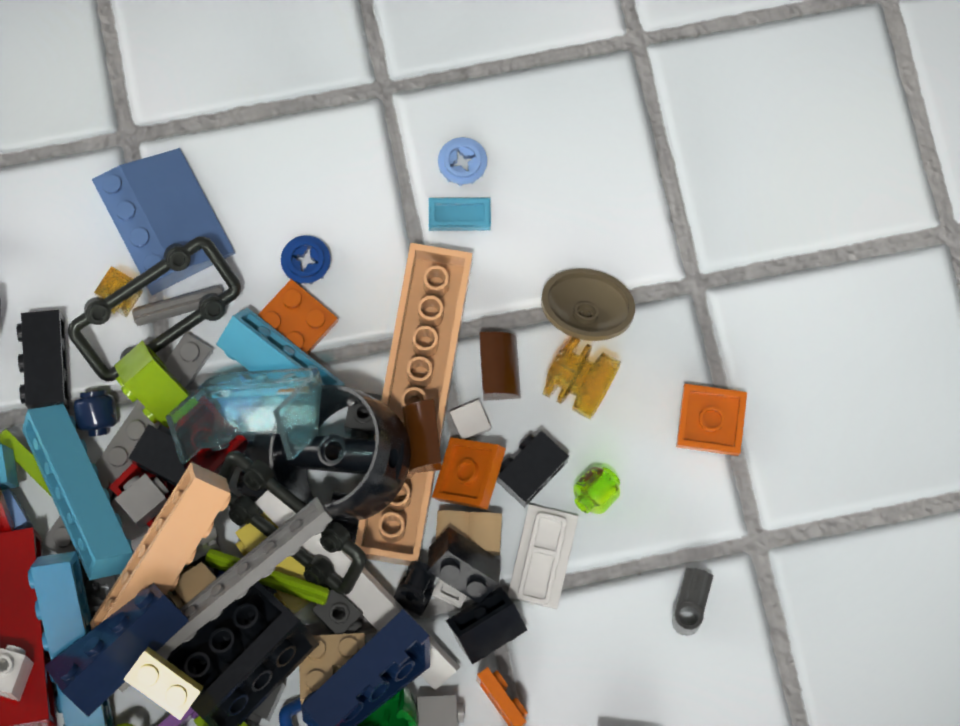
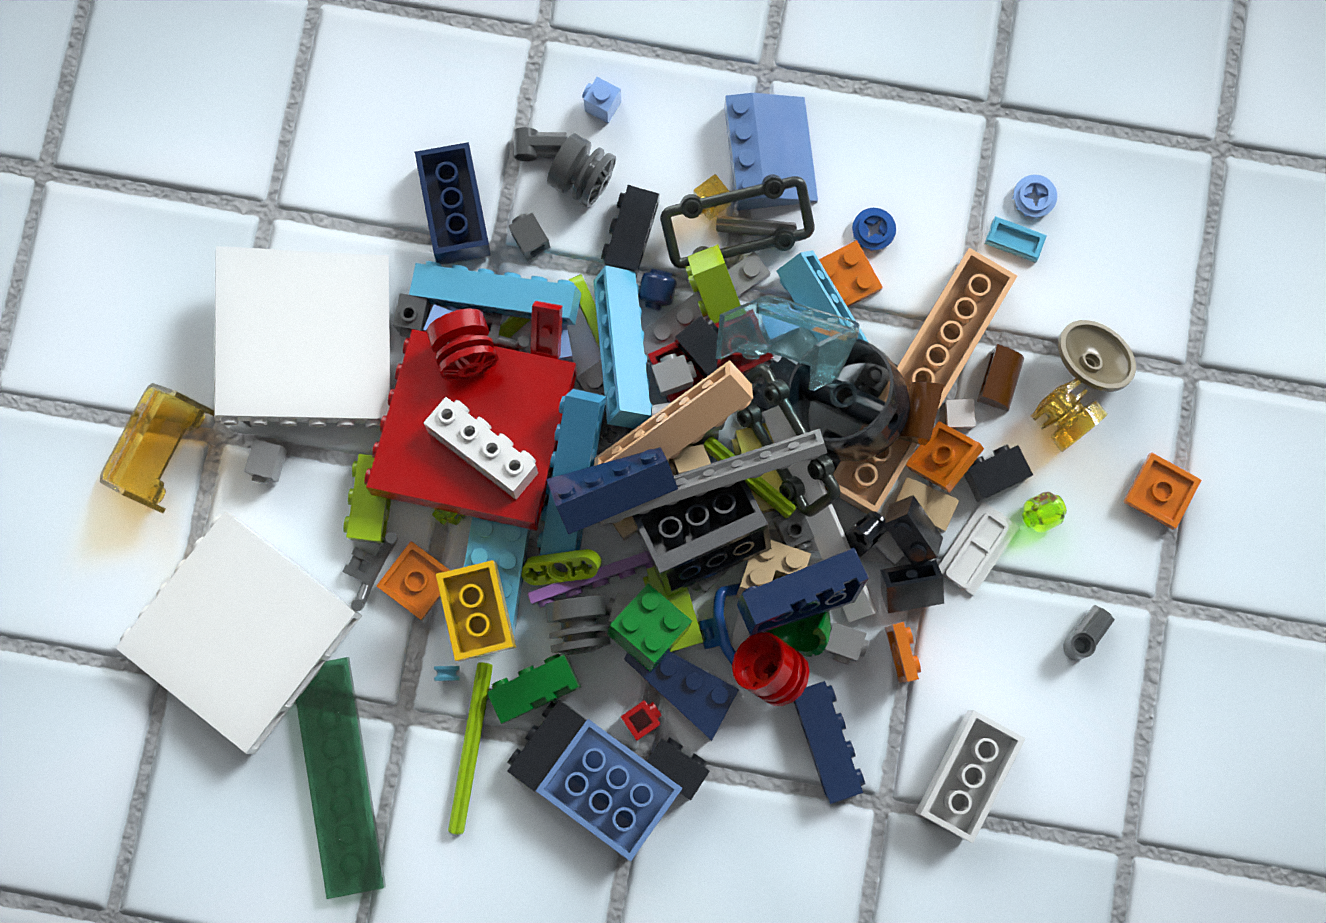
camera: 25 degrees right, 5 degrees up
(163, 683) = (640, 532): brick -> none

